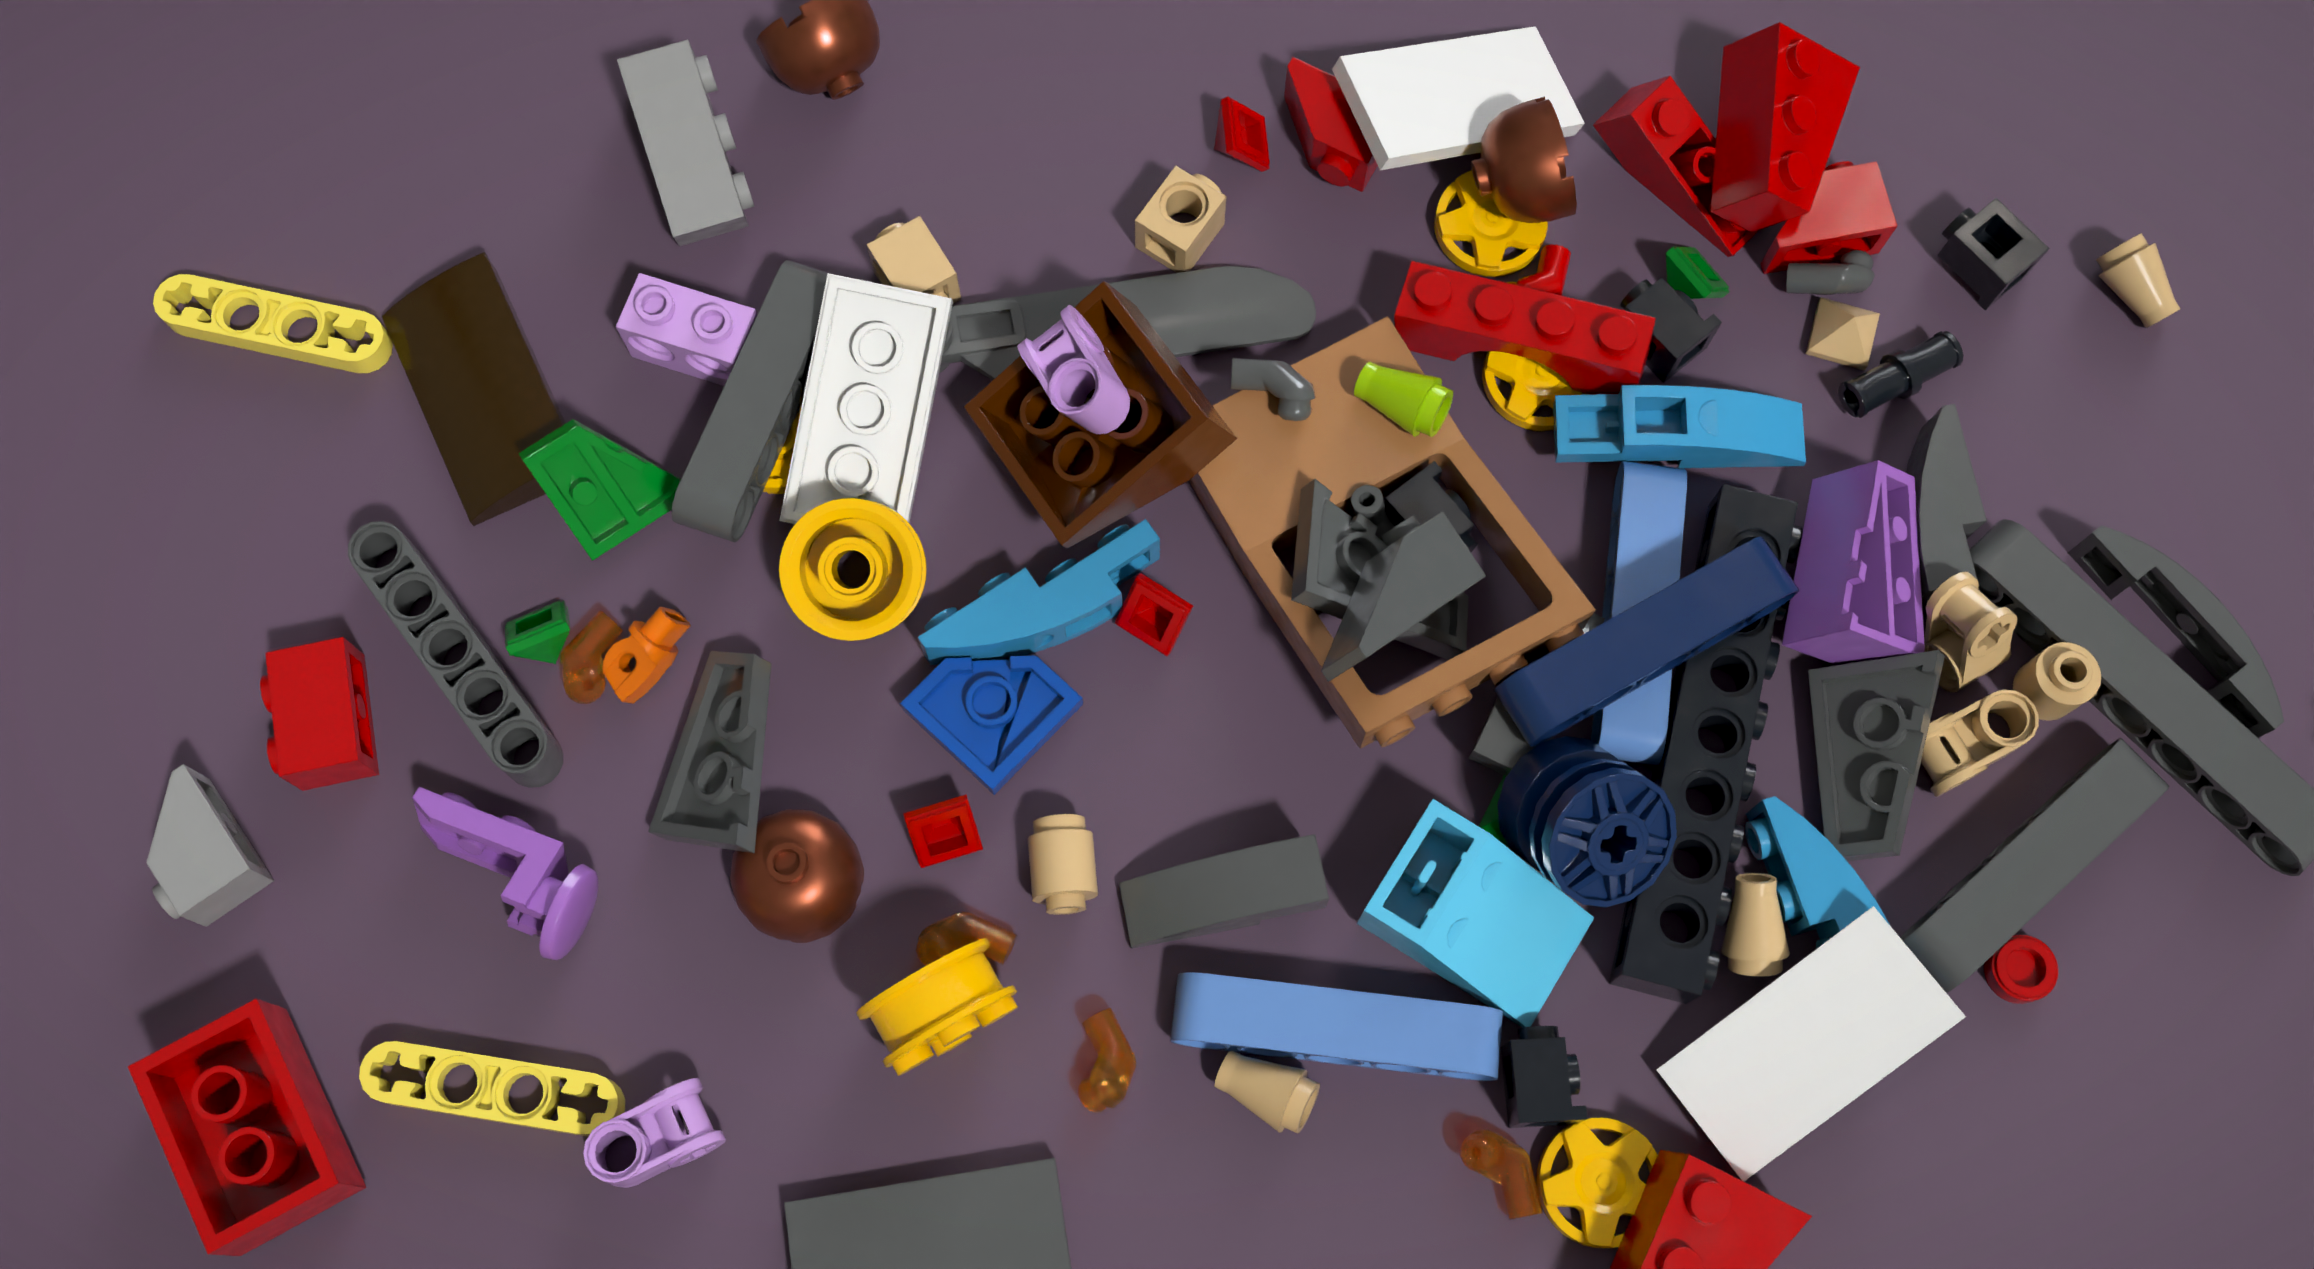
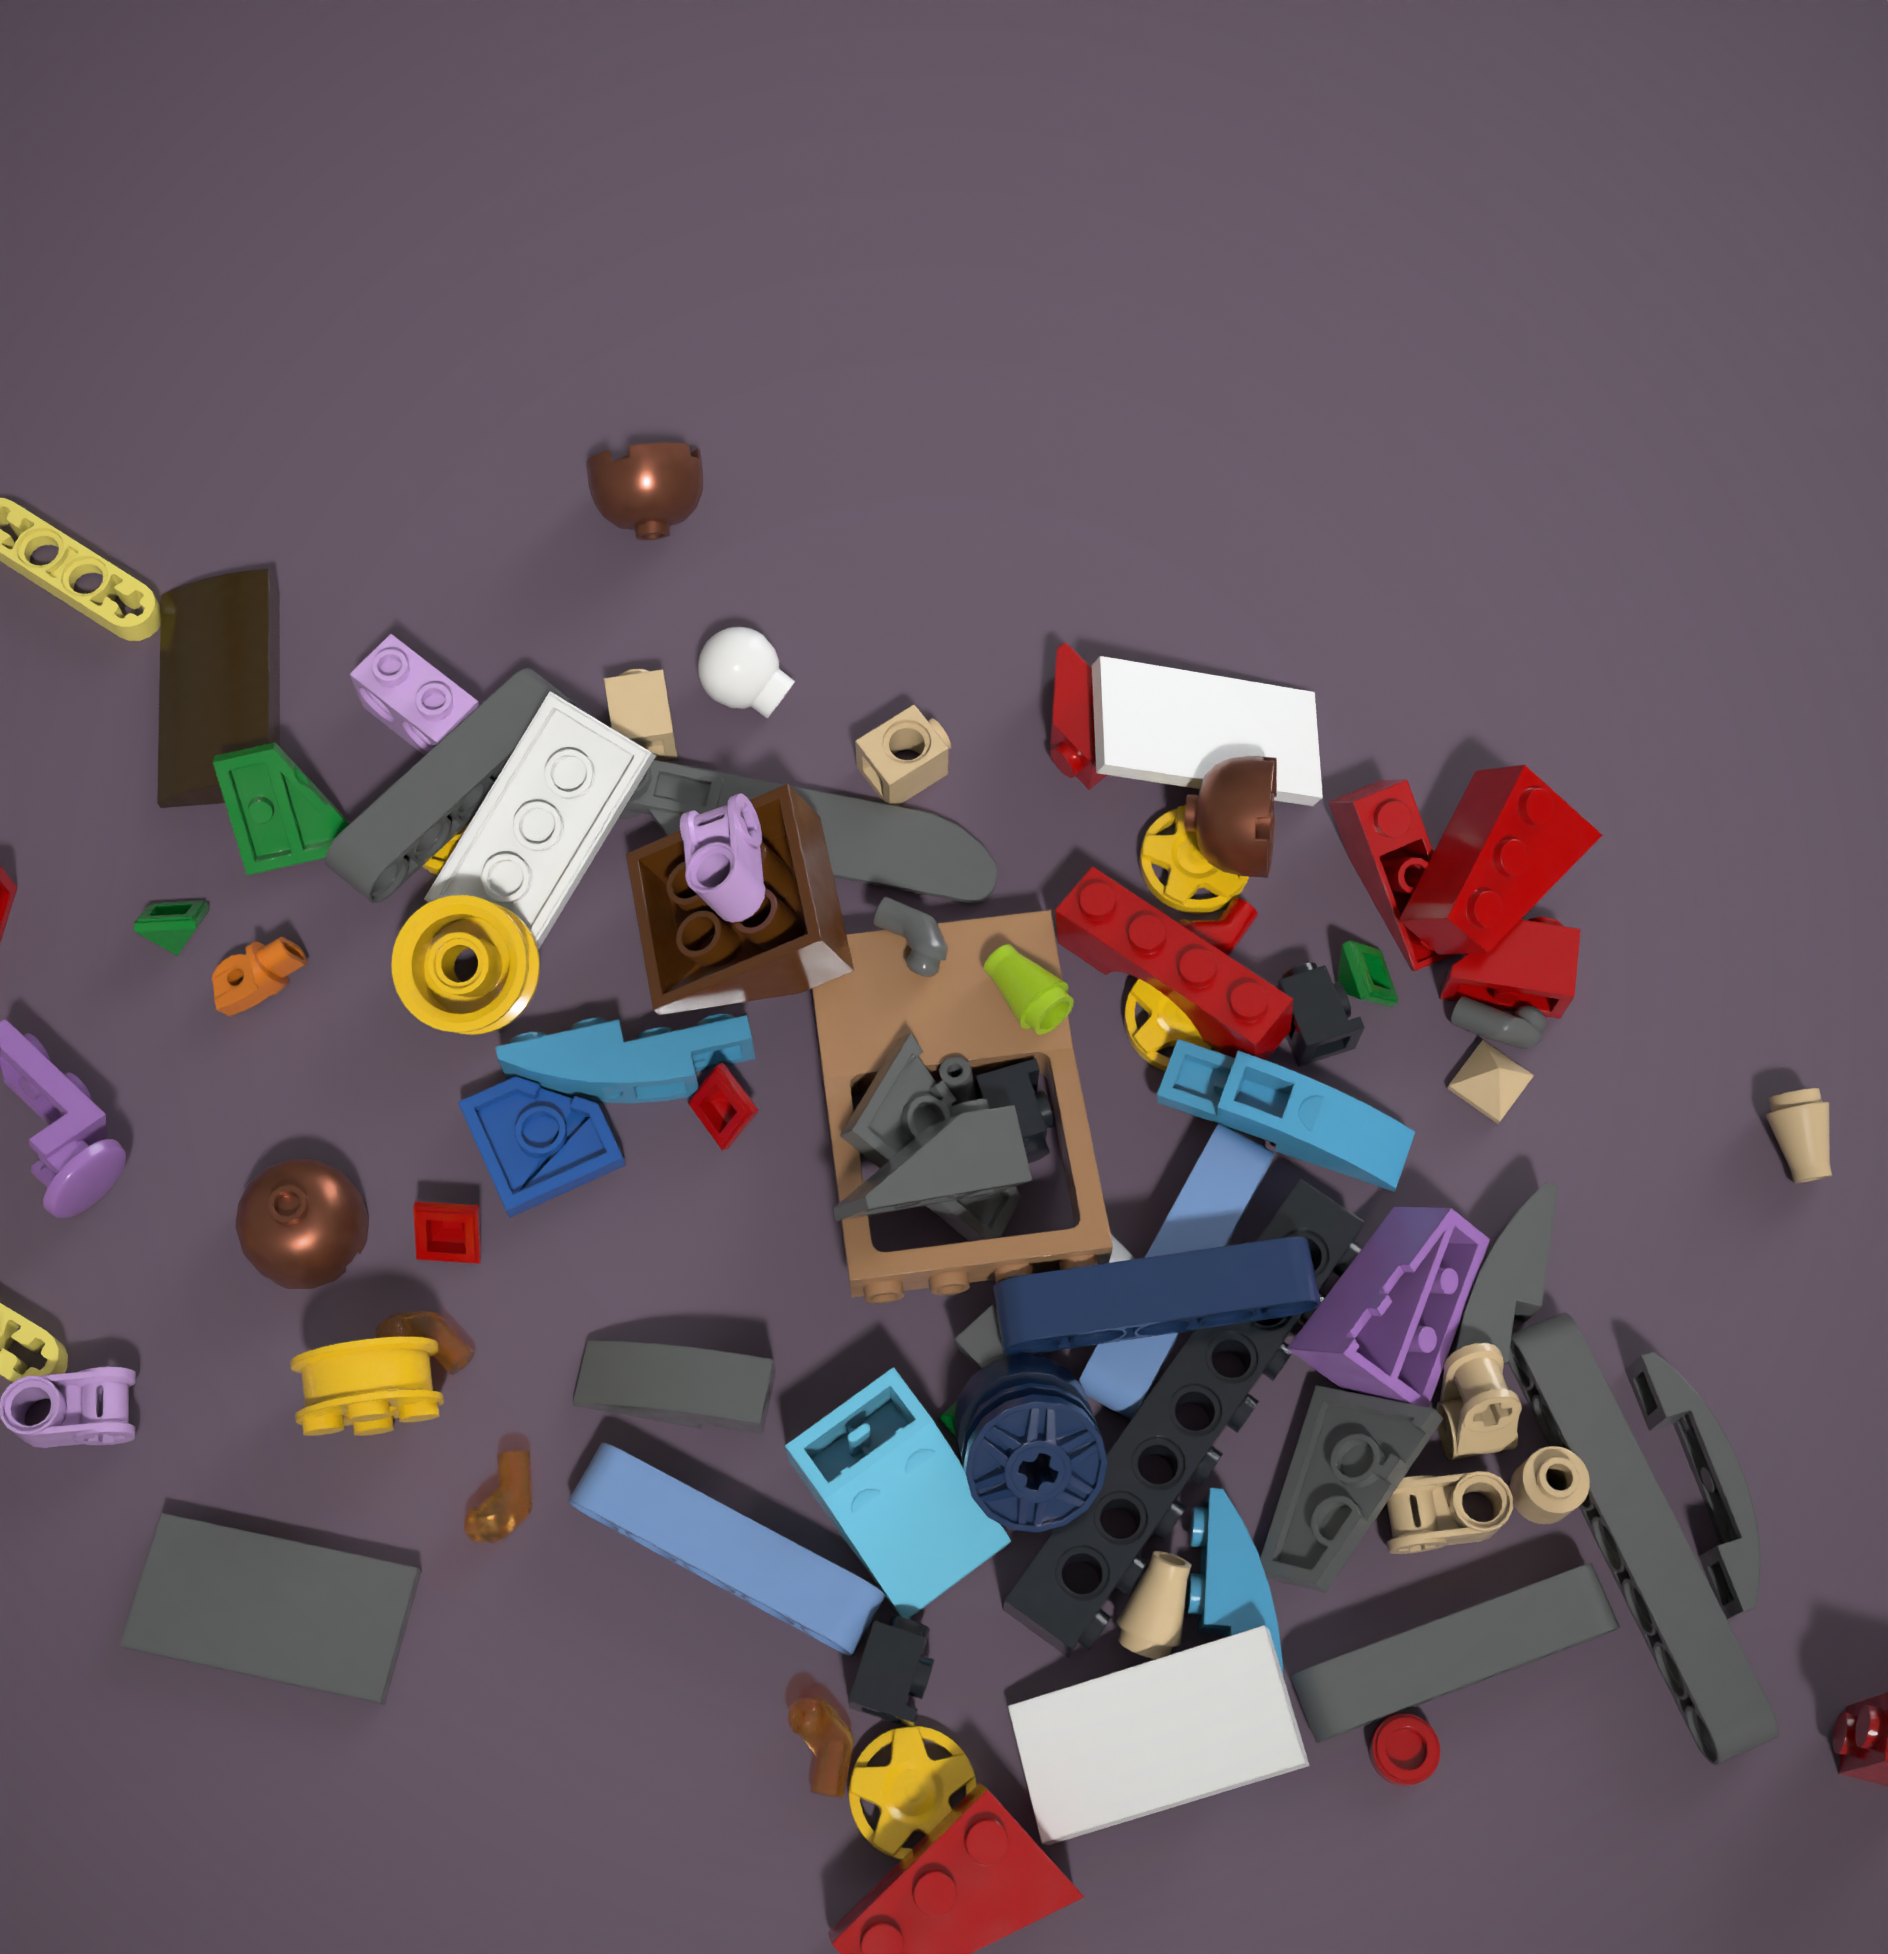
camera: 20 degrees right, 5 degrees down
(439, 630) = (101, 938): dark grey beam -> none
(583, 659) = (199, 960): clear orange arm -> none
(686, 142) = (485, 533): light grey wedge -> none
(719, 758) = (274, 1094): dark grey wing -> none
(993, 191) = (743, 671): none -> white piece
(1062, 863) = (540, 1302): tan brick -> none
(1242, 134) = (996, 698): red slope -> none
(1270, 1090) = (641, 1585): tan cone -> none
(1900, 374) = (1527, 1139): black pin -> none
(1991, 250) = (1676, 1039): black brick -> none

